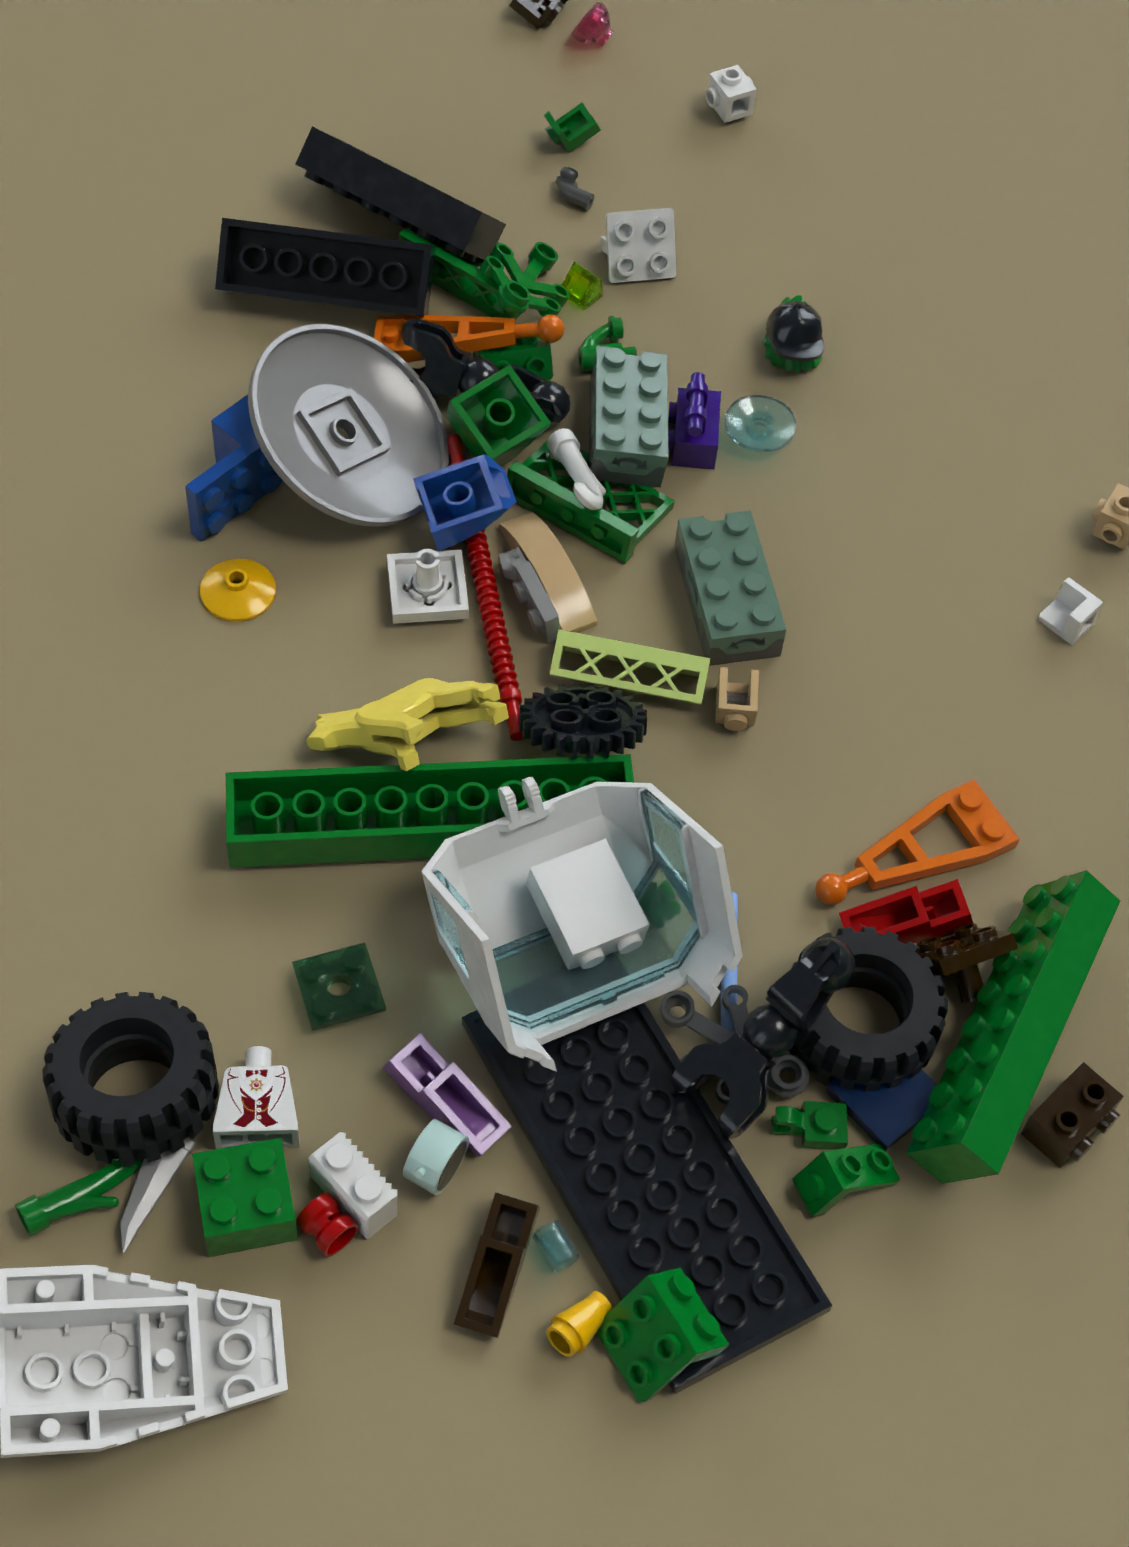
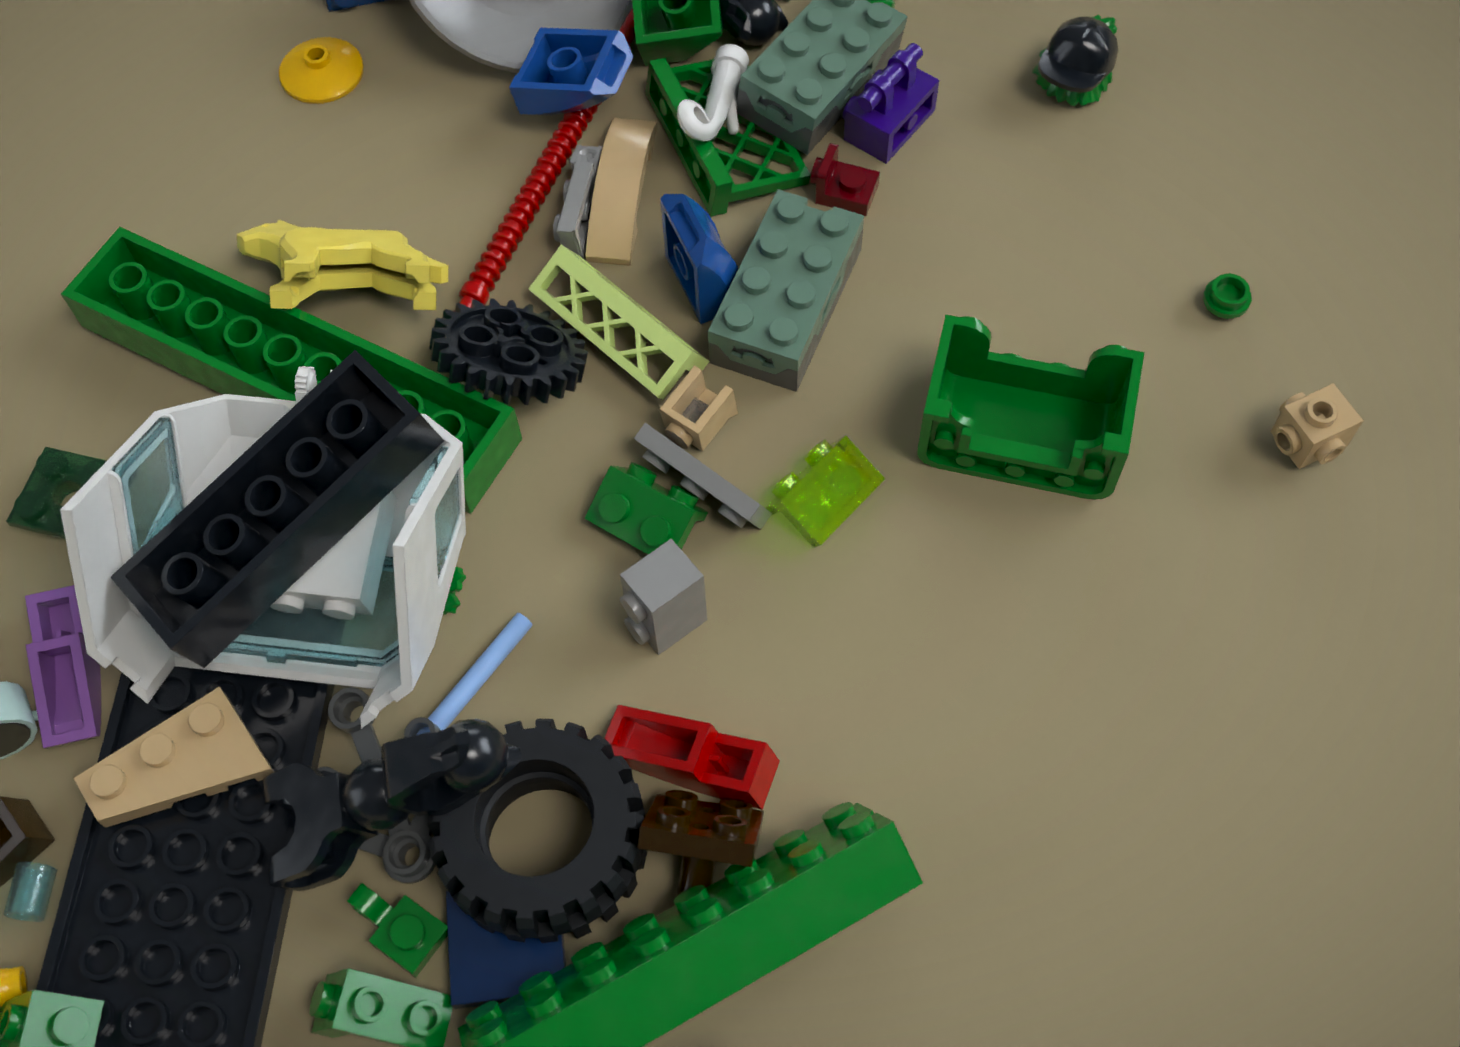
camera: 40 degrees right, 5 degrees up
(427, 578) = (483, 126): white plate -> none
(571, 886) = (276, 510): none -> black brick
(592, 1103) = (178, 759): none -> tan wing
(656, 593) = (696, 254): none -> blue slope
(703, 496) = (843, 183): none -> dark red bracket
(755, 784) = (642, 510): none -> green bracket
(760, 423) = (965, 134): clear light blue dish -> none
(774, 741) = (701, 479): none -> light grey plate
(823, 826) = (663, 597): none -> light grey brick
(856, 708) = (826, 489): none -> clear neon green bracket
(953, 595) = (1029, 417): none -> green windscreen
(970, 812) = (866, 684): orange plate -> none
(1005, 457) = (1227, 296): none -> green plate
(1071, 612) = (1169, 510): white panel -> none

